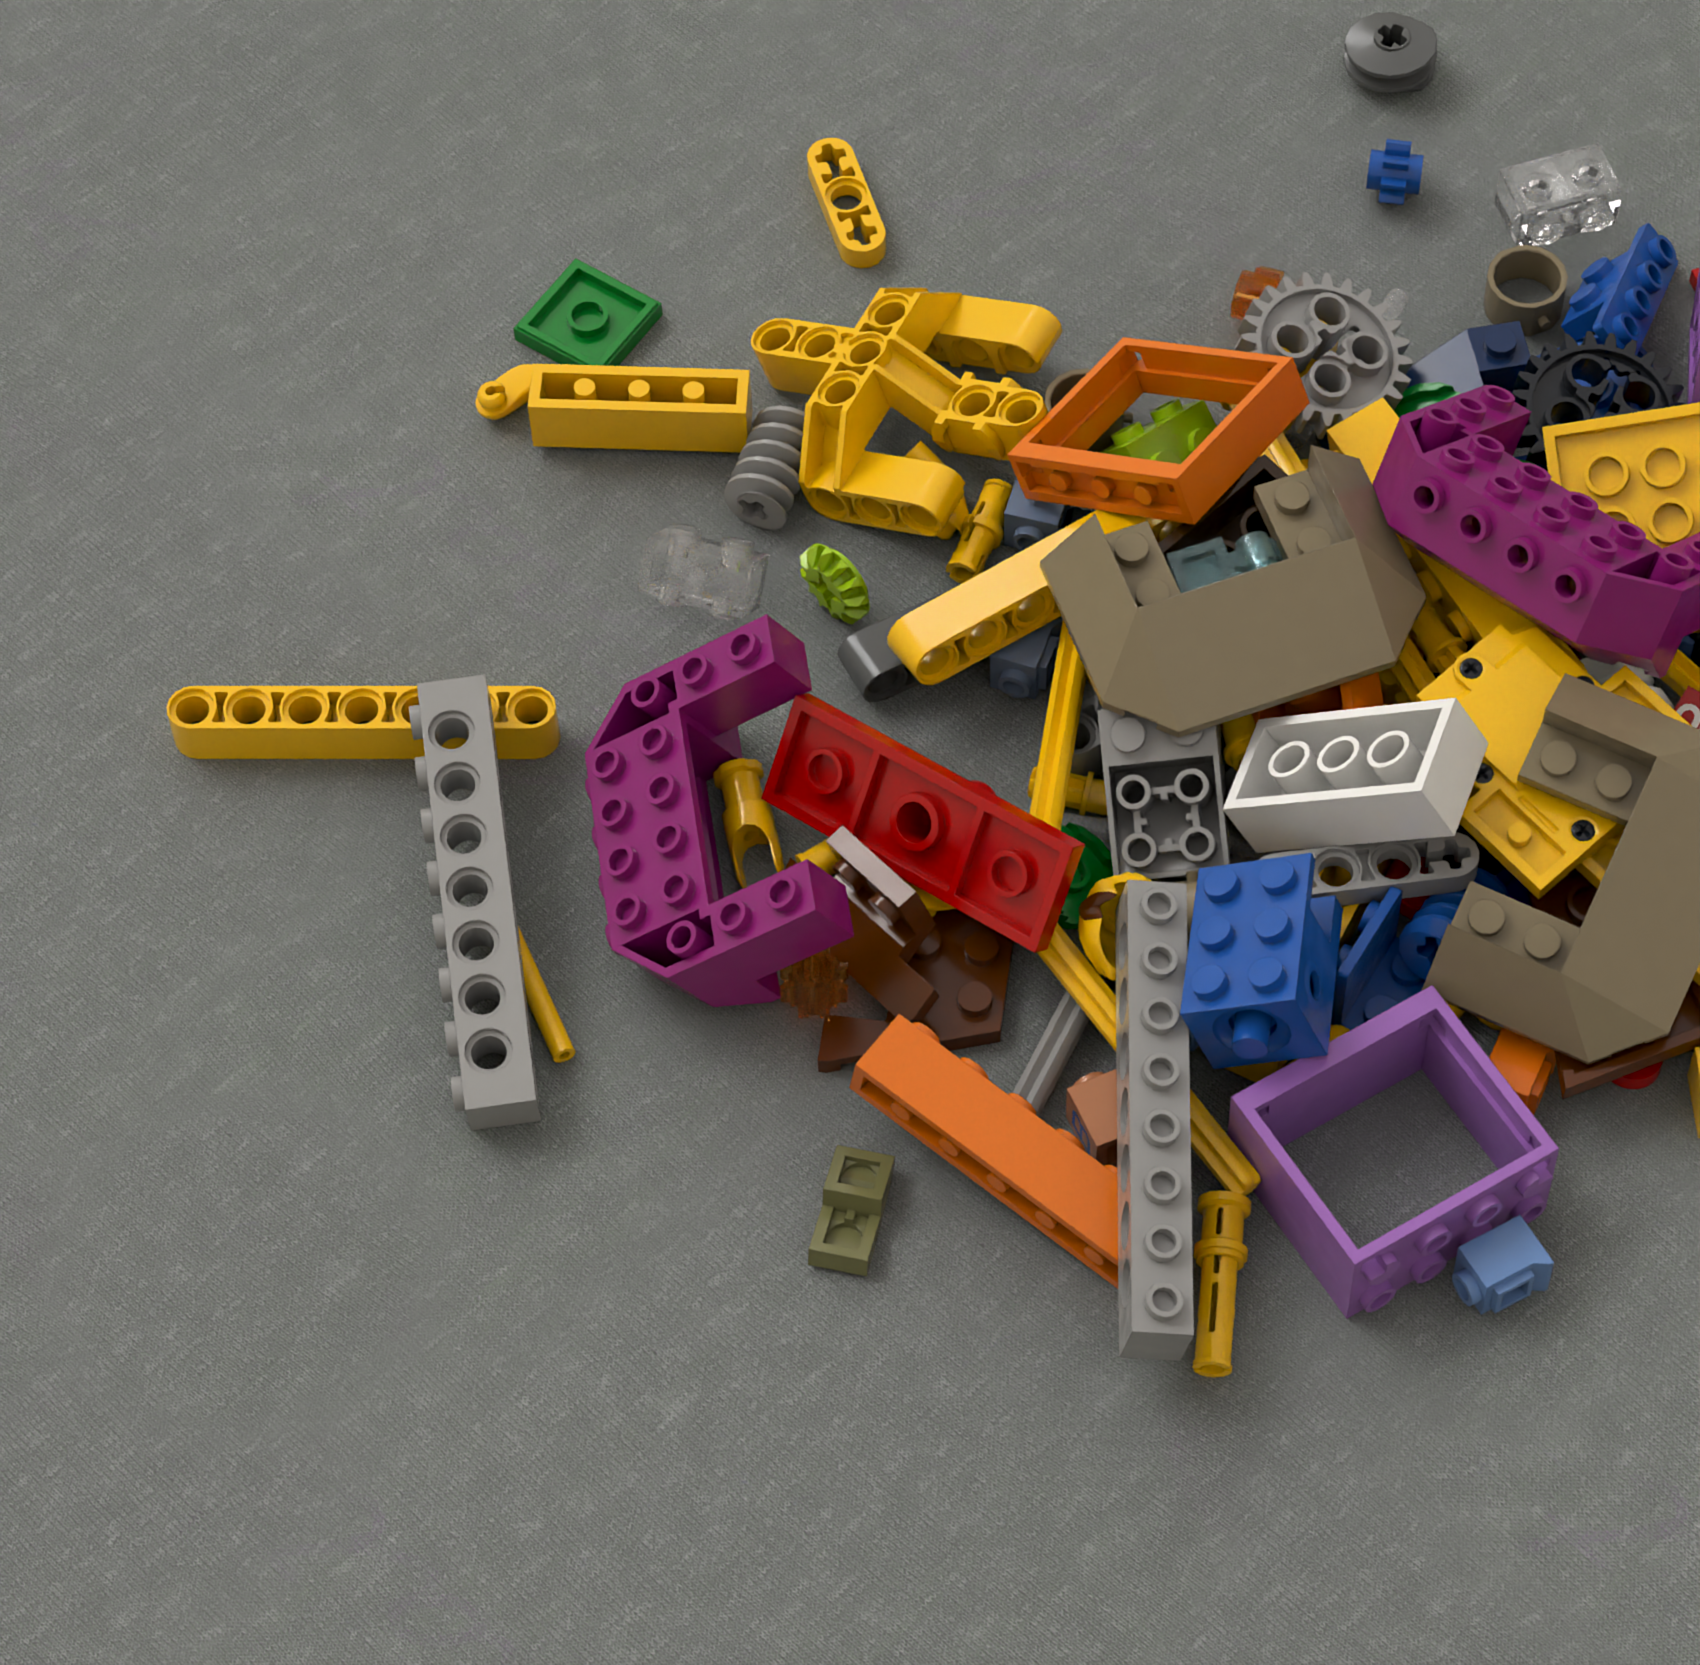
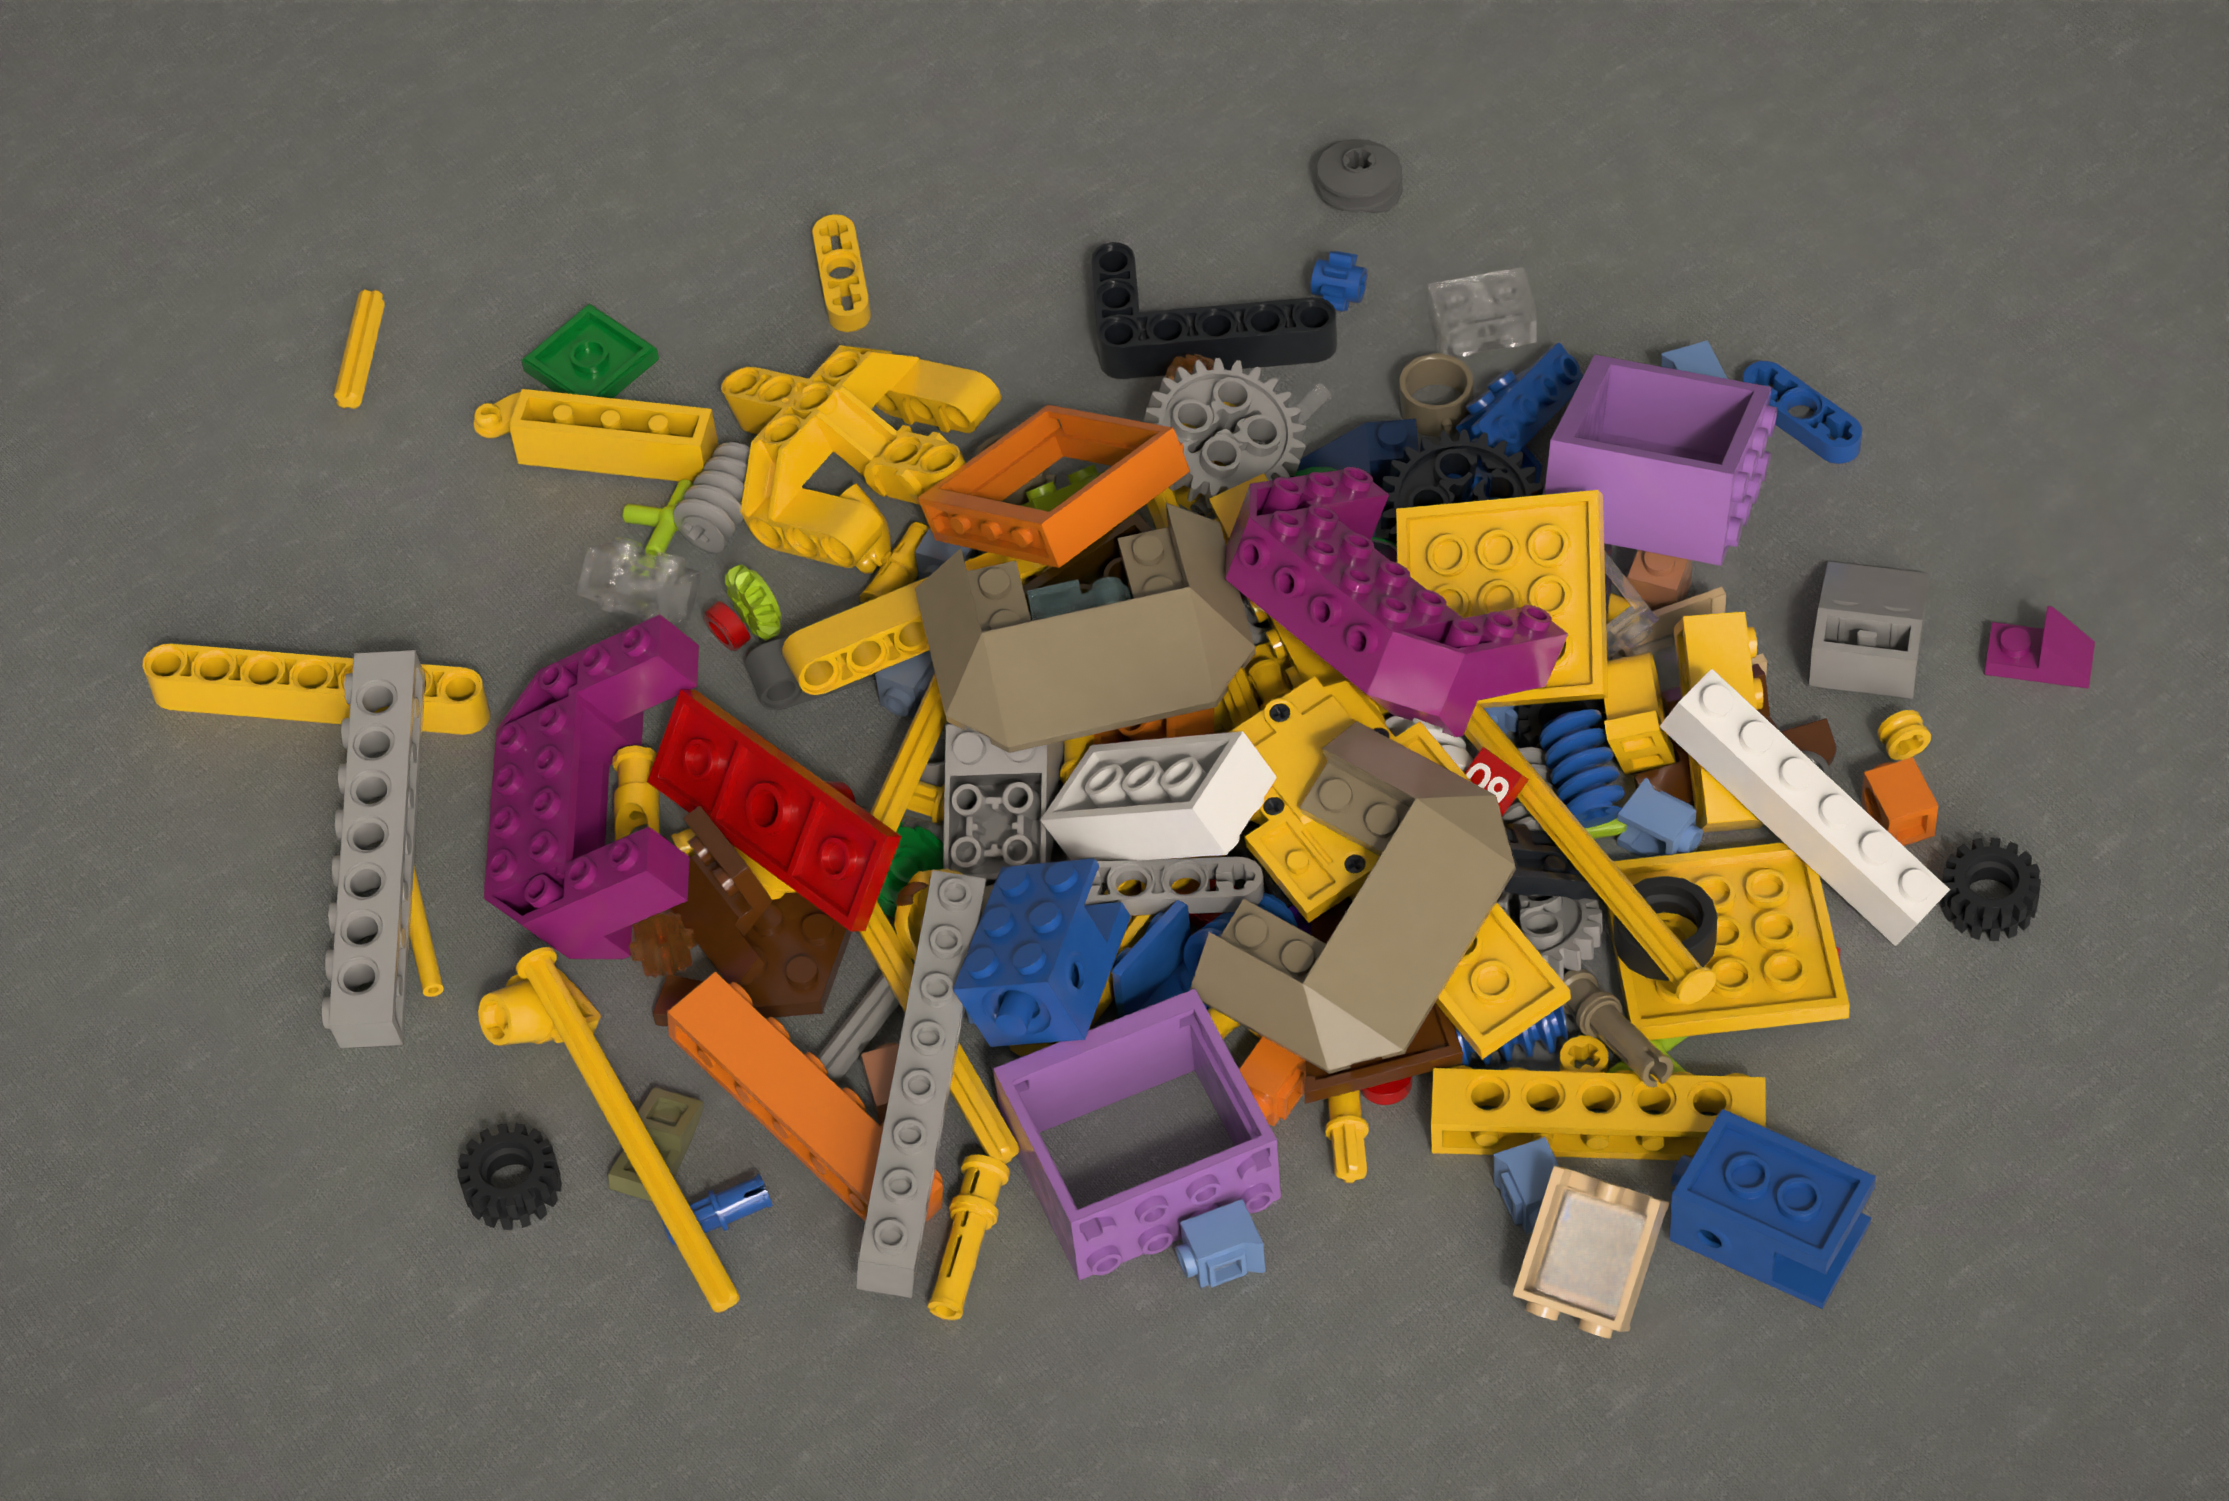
camera: 10 degrees right, 5 degrees down
(328, 329) = (359, 349): none -> yellow axle
(691, 1069) = (519, 1017): none -> yellow piece
(691, 1231) = (501, 1151): none -> black tyre
(706, 495) = (659, 518): none -> lime piece
(807, 612) = (726, 626): none -> red tile
(829, 1199) = (628, 1128): none -> yellow axle
(935, 1280) = (729, 1205): none -> blue axle
(1210, 255) = (1254, 333): none -> black beam
(1608, 1129) = (1347, 1135): none -> yellow axle

